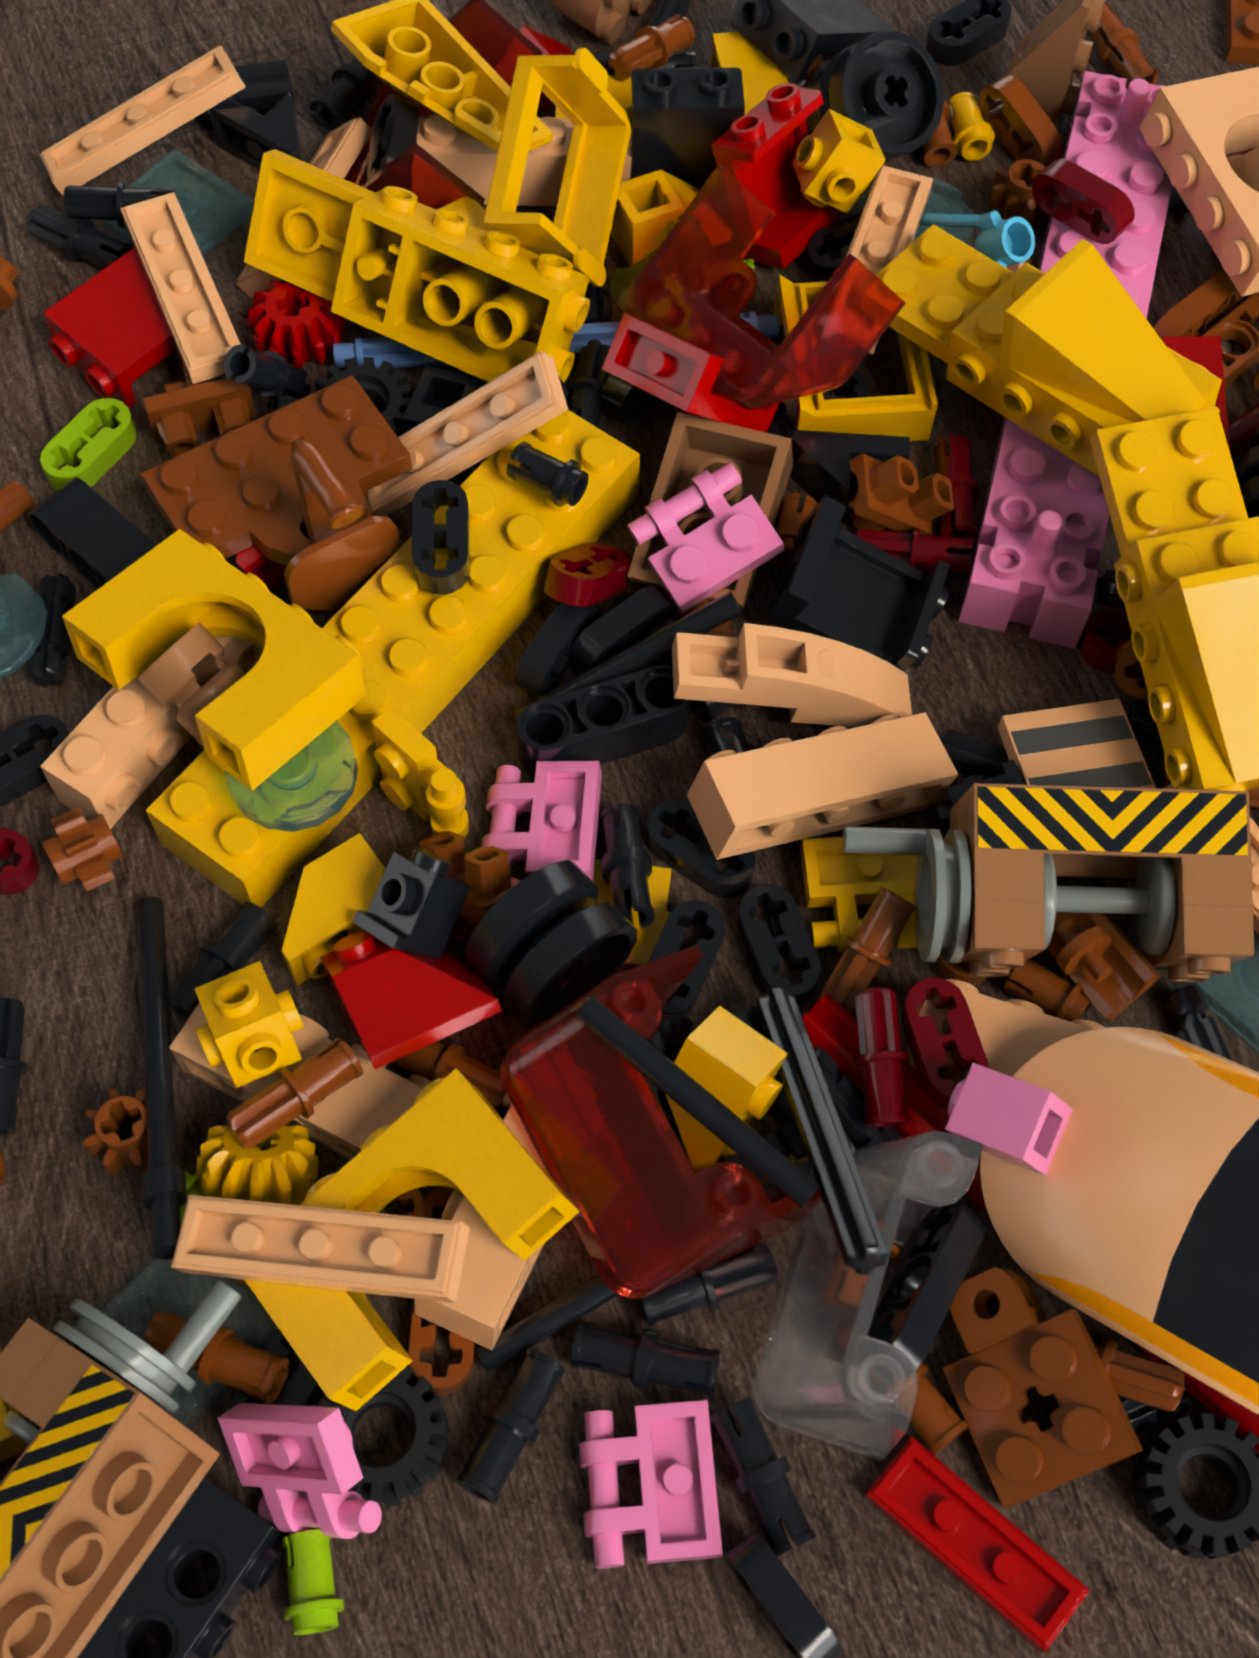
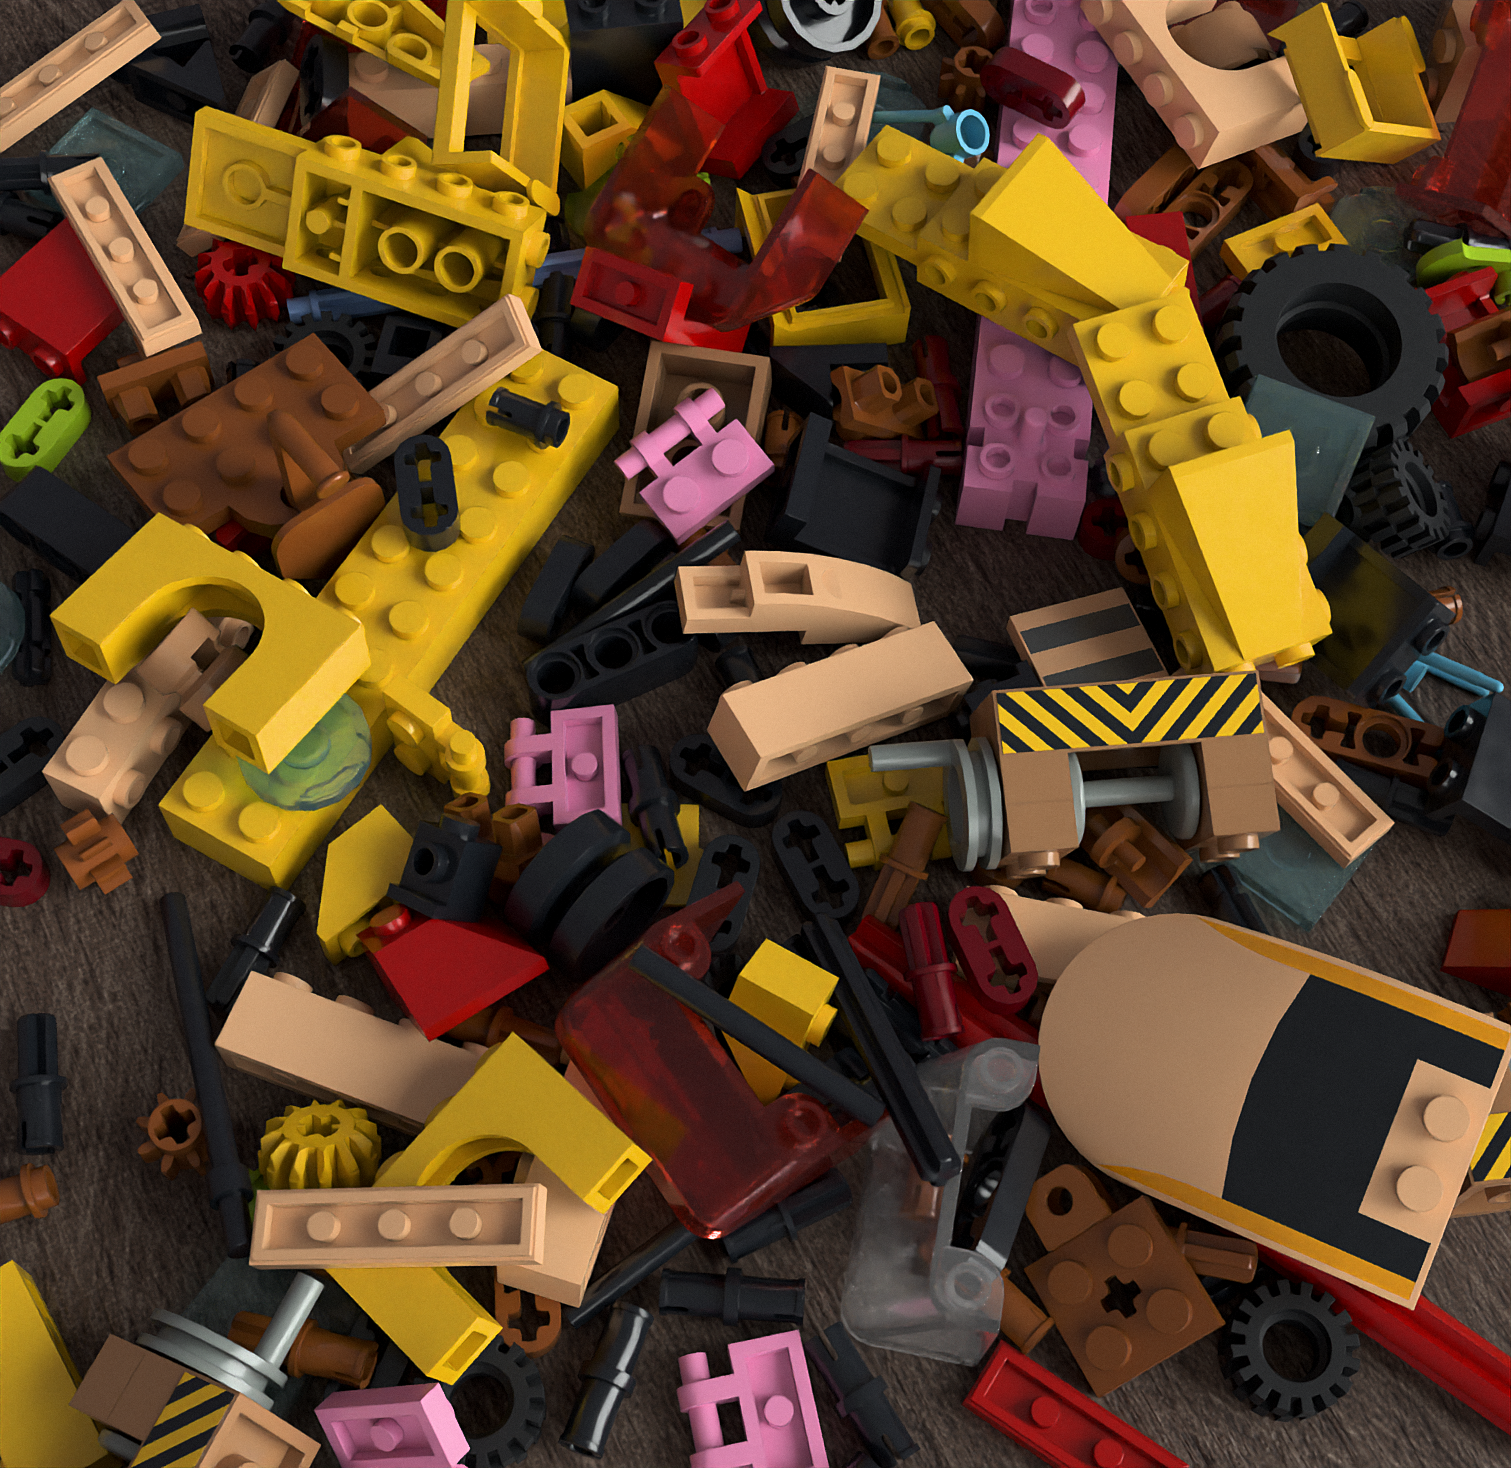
camera: 10 degrees left, 0 degrees up
(248, 1025) = (295, 1012): yellow brick -> none
(265, 372) = (221, 337): black axle -> none
(294, 1093) = (350, 1076): dark orange axle -> none
(587, 574) = (579, 514): dark red beam -> none
(837, 162) = (782, 66): yellow brick -> none
(1008, 1117) = (1061, 1016): bright pink brick -> none

